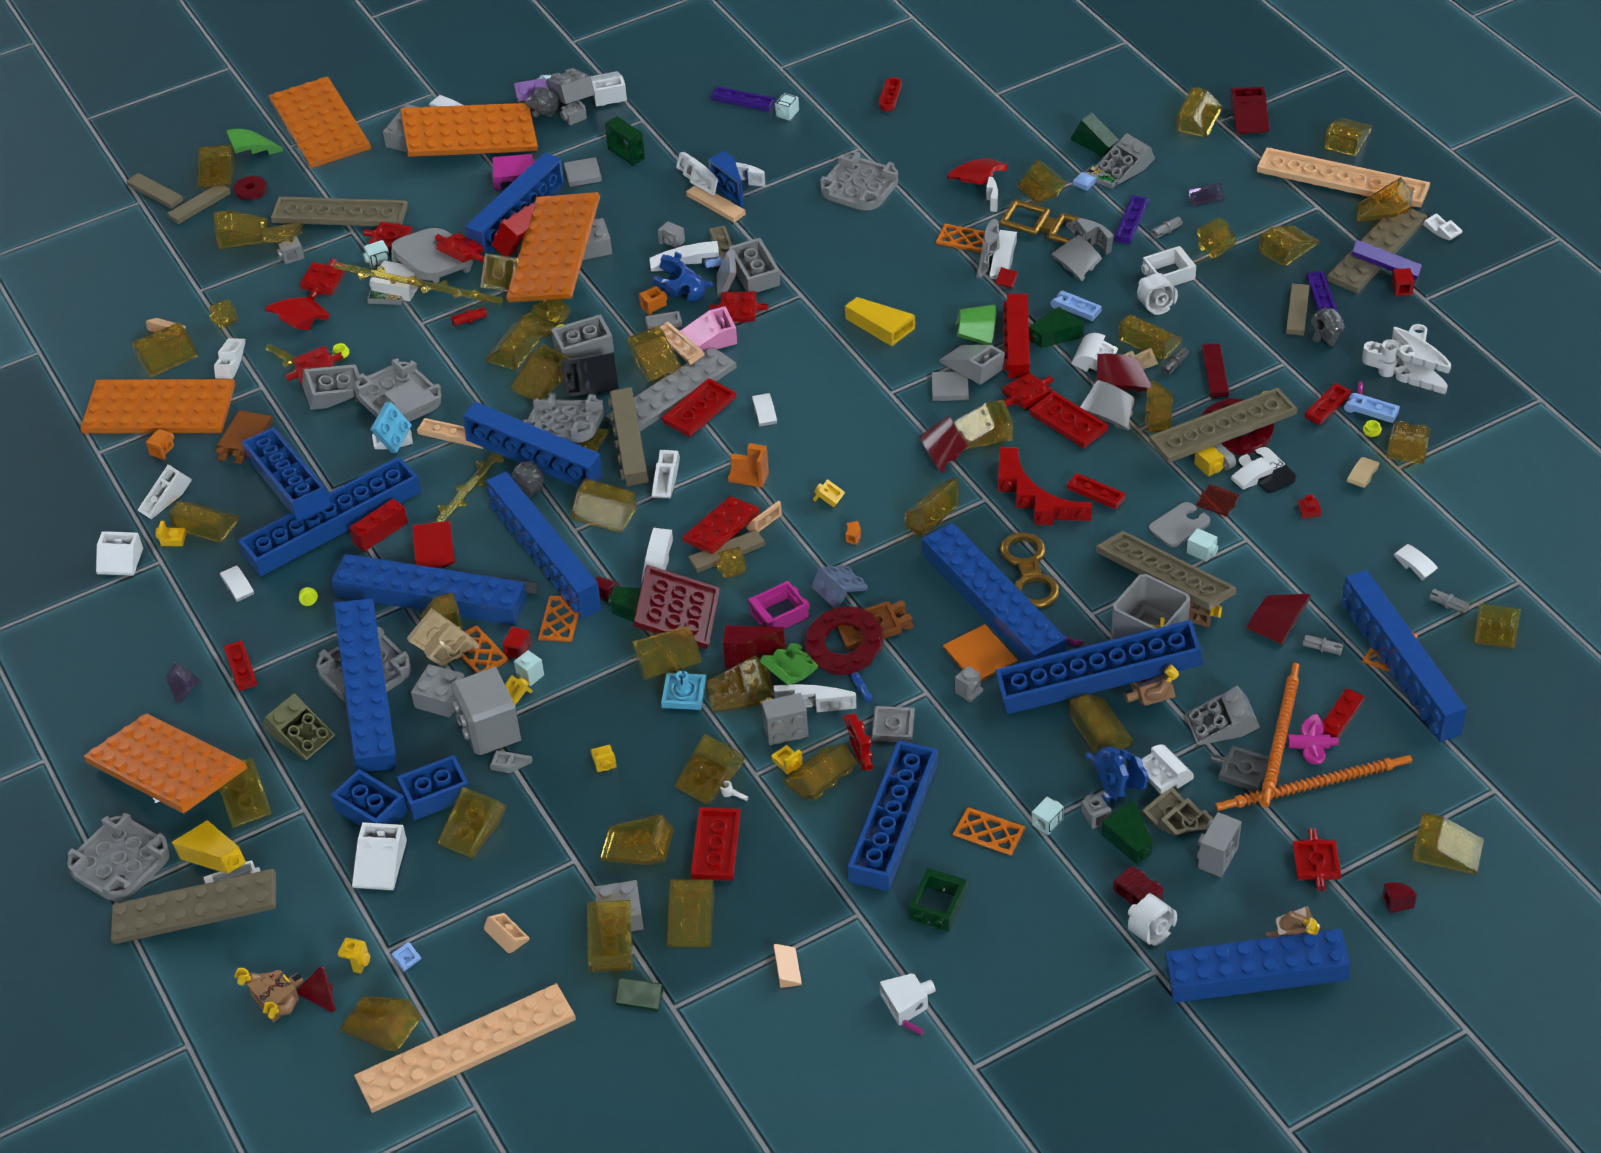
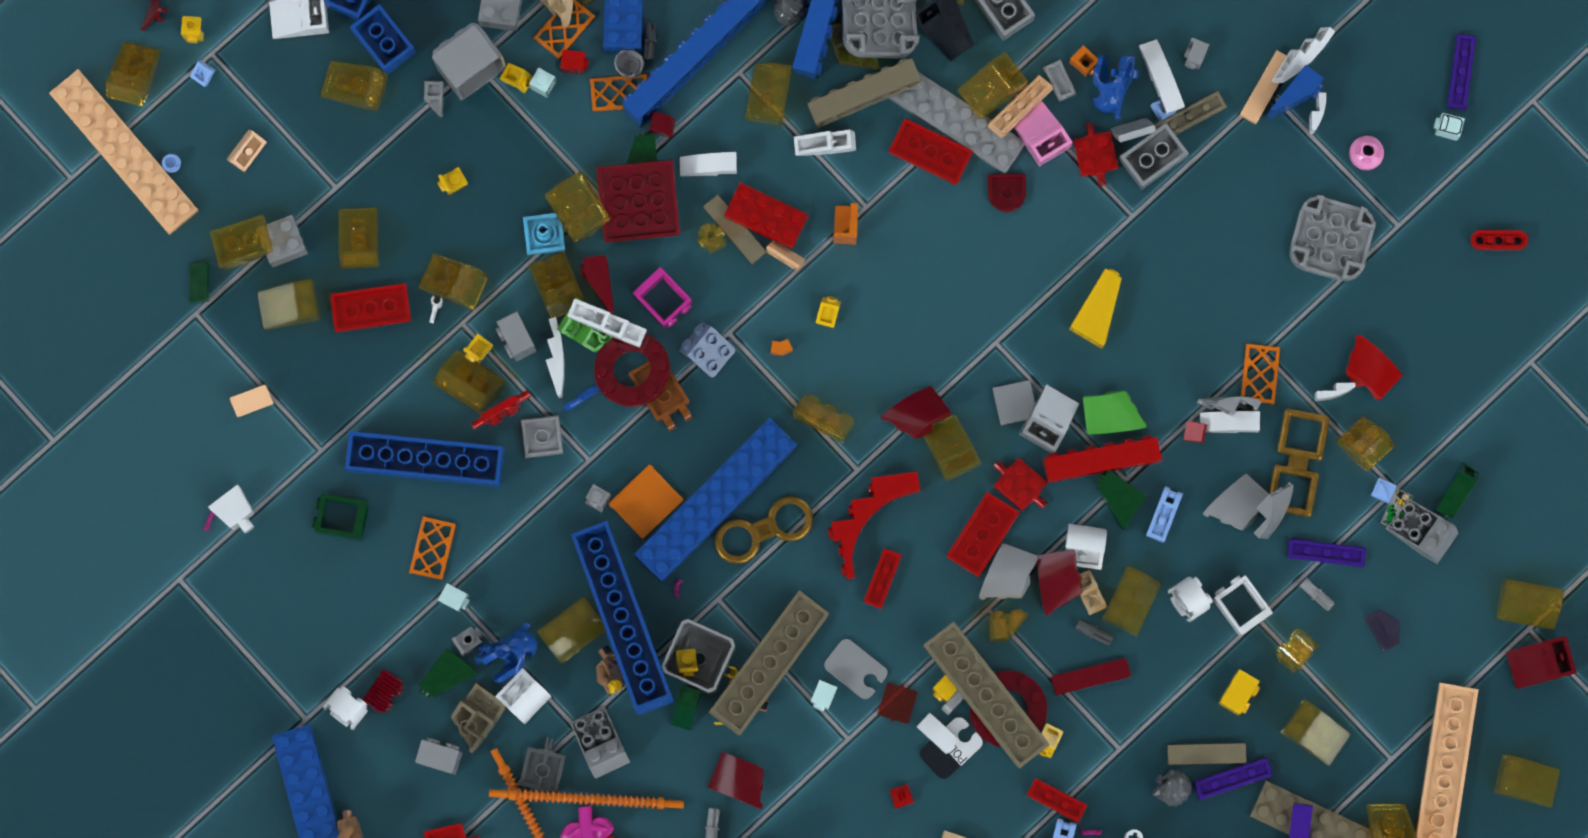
camera: 75 degrees right, 35 degrees up
(494, 1001) = (171, 163): none -> light blue plate
(536, 600) = (629, 63): none -> light grey hair
(752, 366) = (1006, 191): none -> dark red tile
(764, 409) = (941, 219): white slope -> none
(792, 158) = (1363, 161): none -> bright pink piece
(793, 641) = (607, 323): none -> white slope
(1207, 641) = (686, 707): none -> dark green slope
(1245, 280) = (1239, 692): none -> yellow brick

